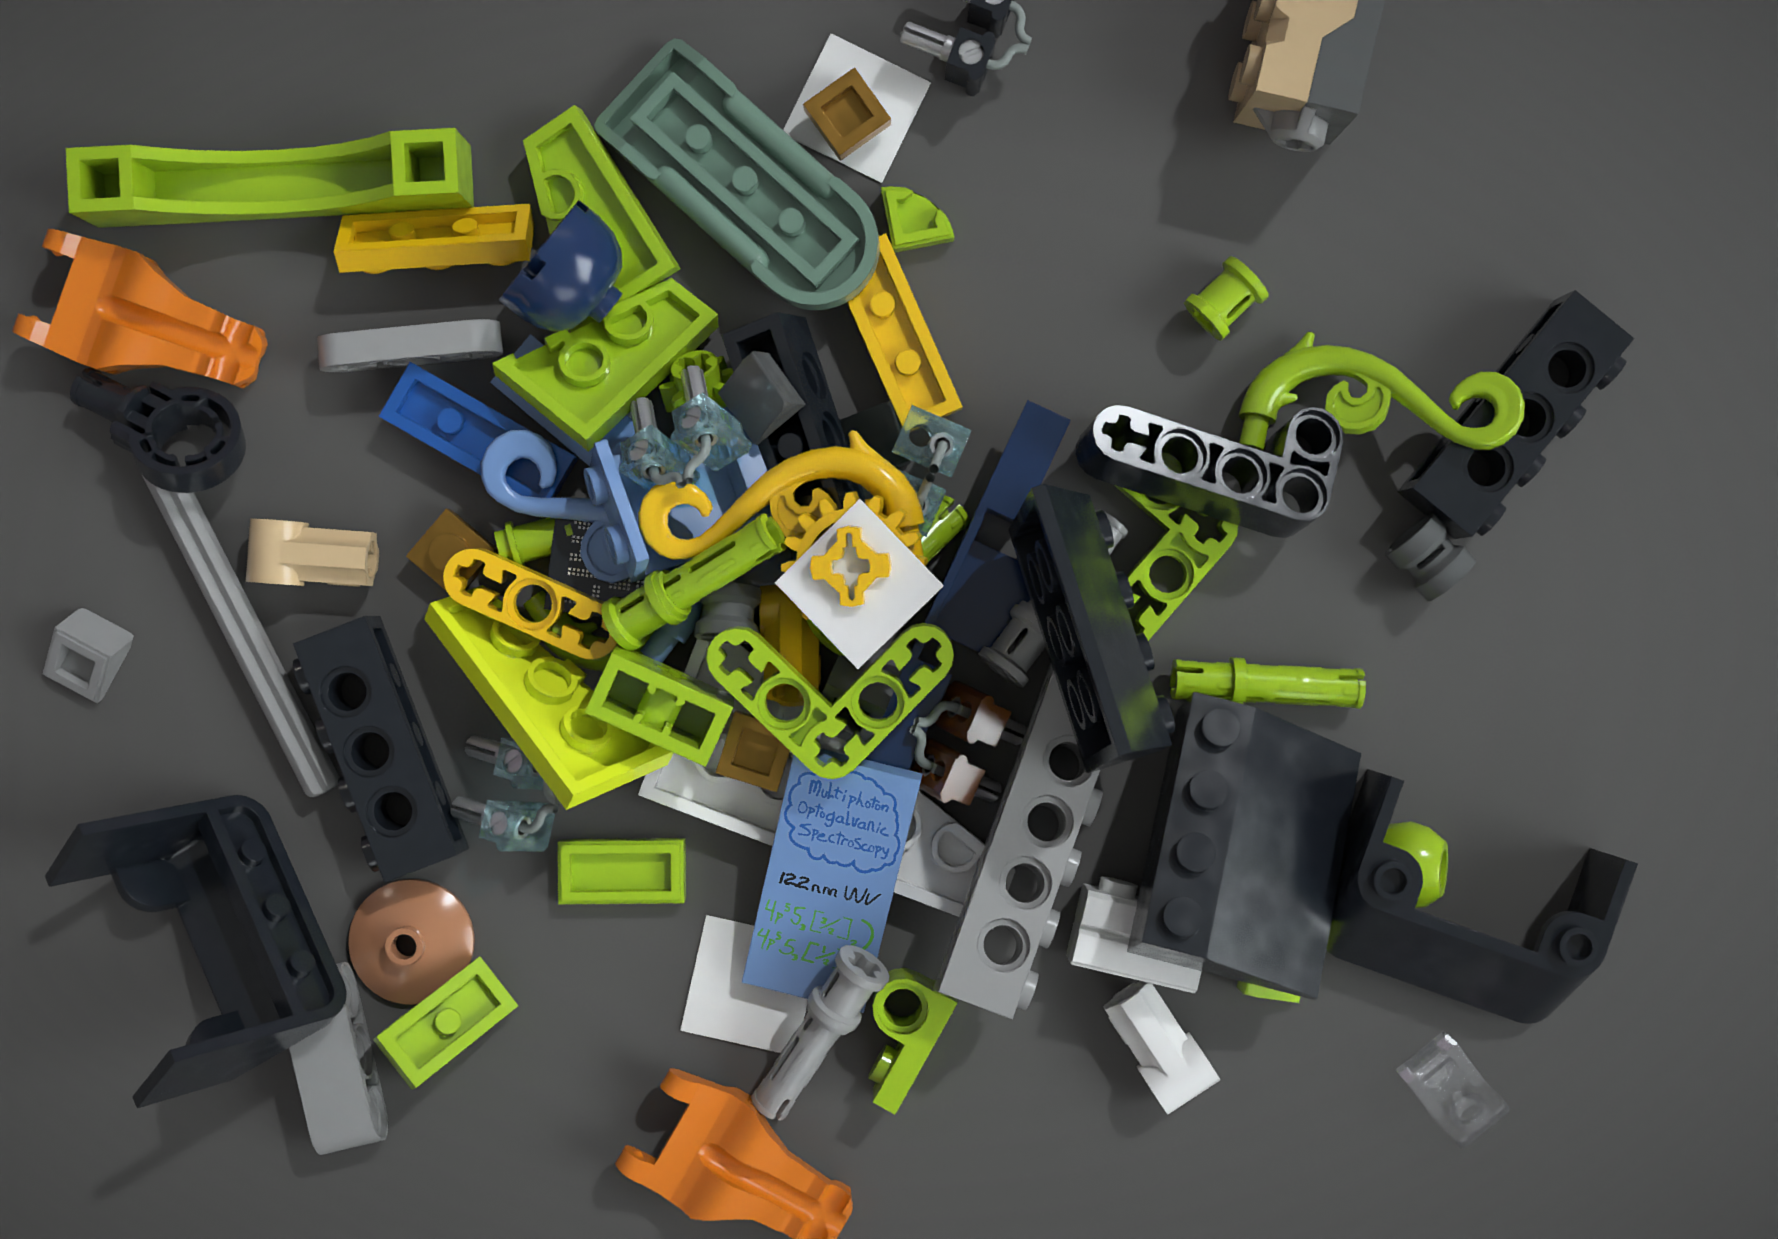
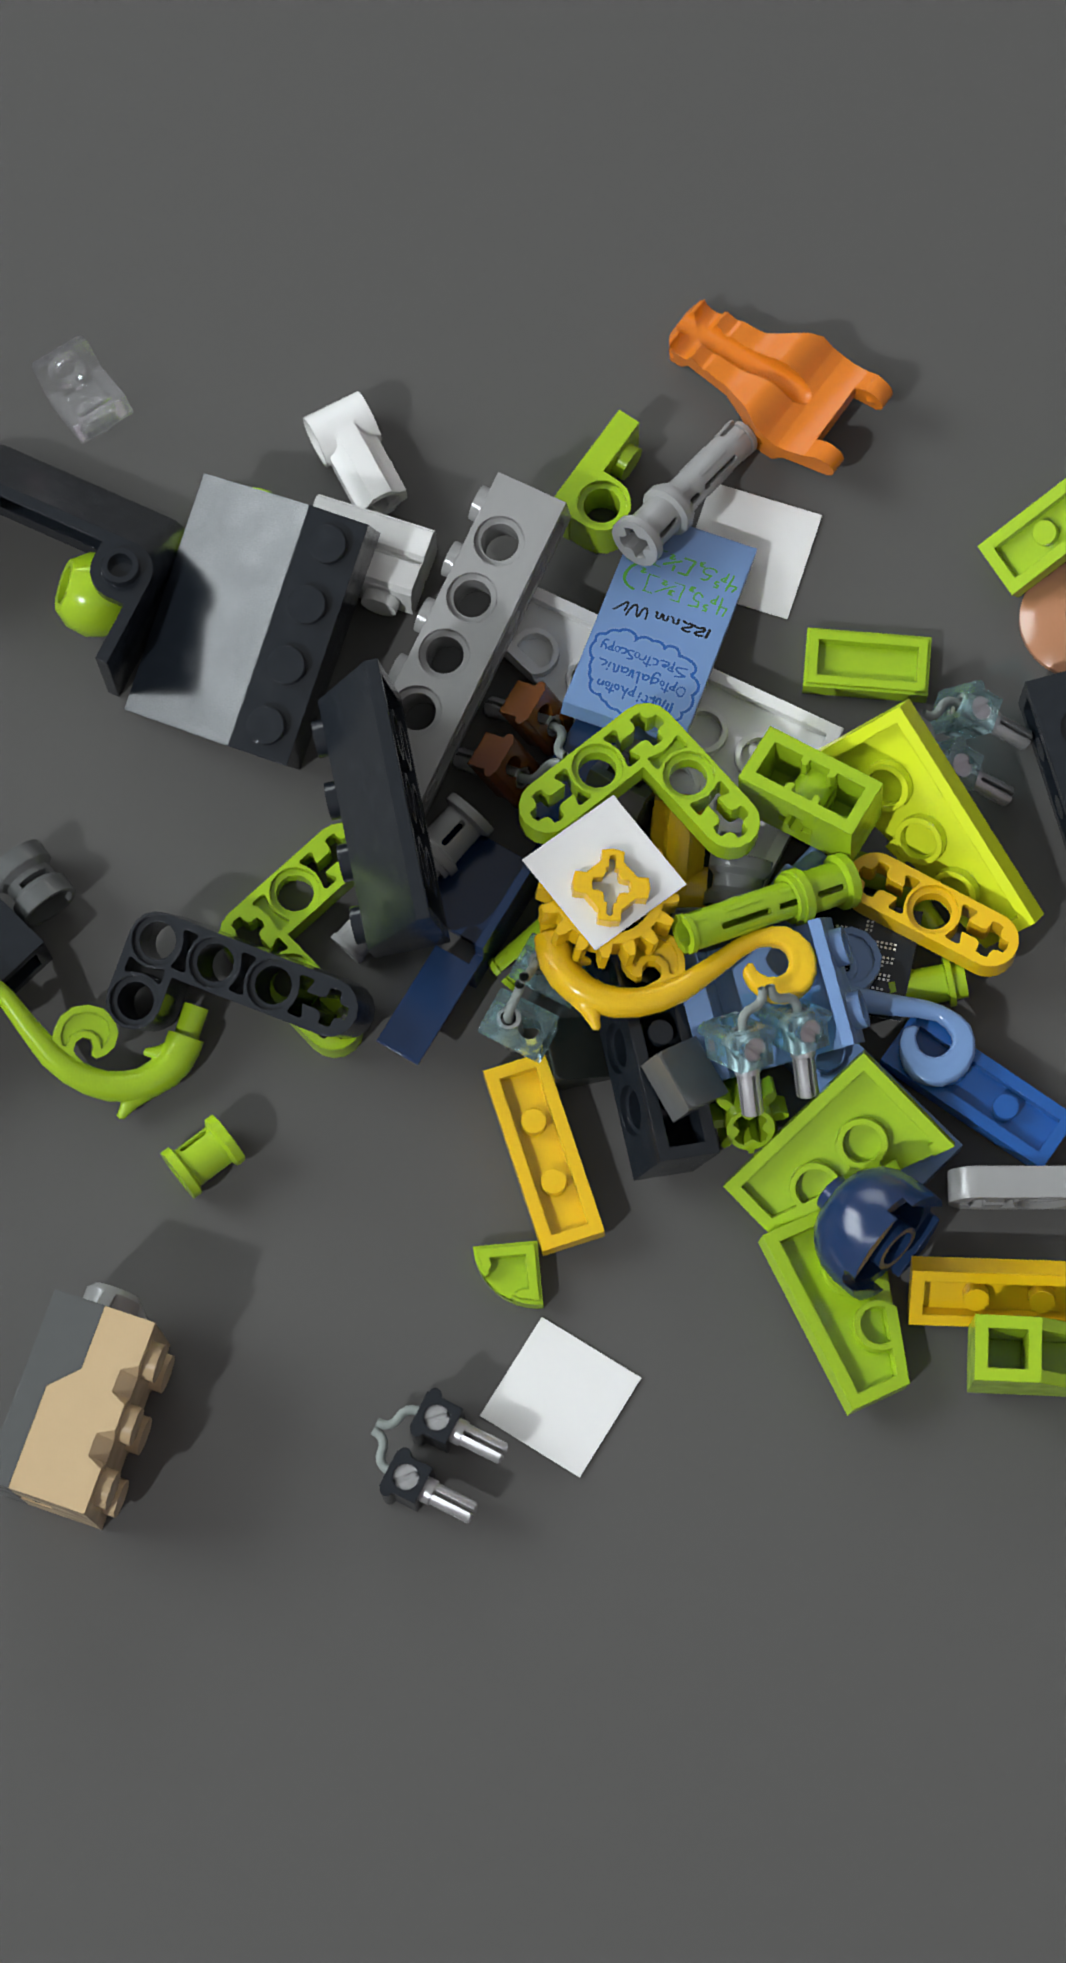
camera: 175 degrees left, 15 degrees down
(442, 541) = (1018, 989): pearl gold plate -> none
(743, 180) = (686, 1321): sand green piece -> none
(752, 753) = (726, 742): pearl gold plate -> none
(847, 114) = (570, 1379): pearl gold plate -> none
(1267, 683) = (210, 780): lime pin -> none

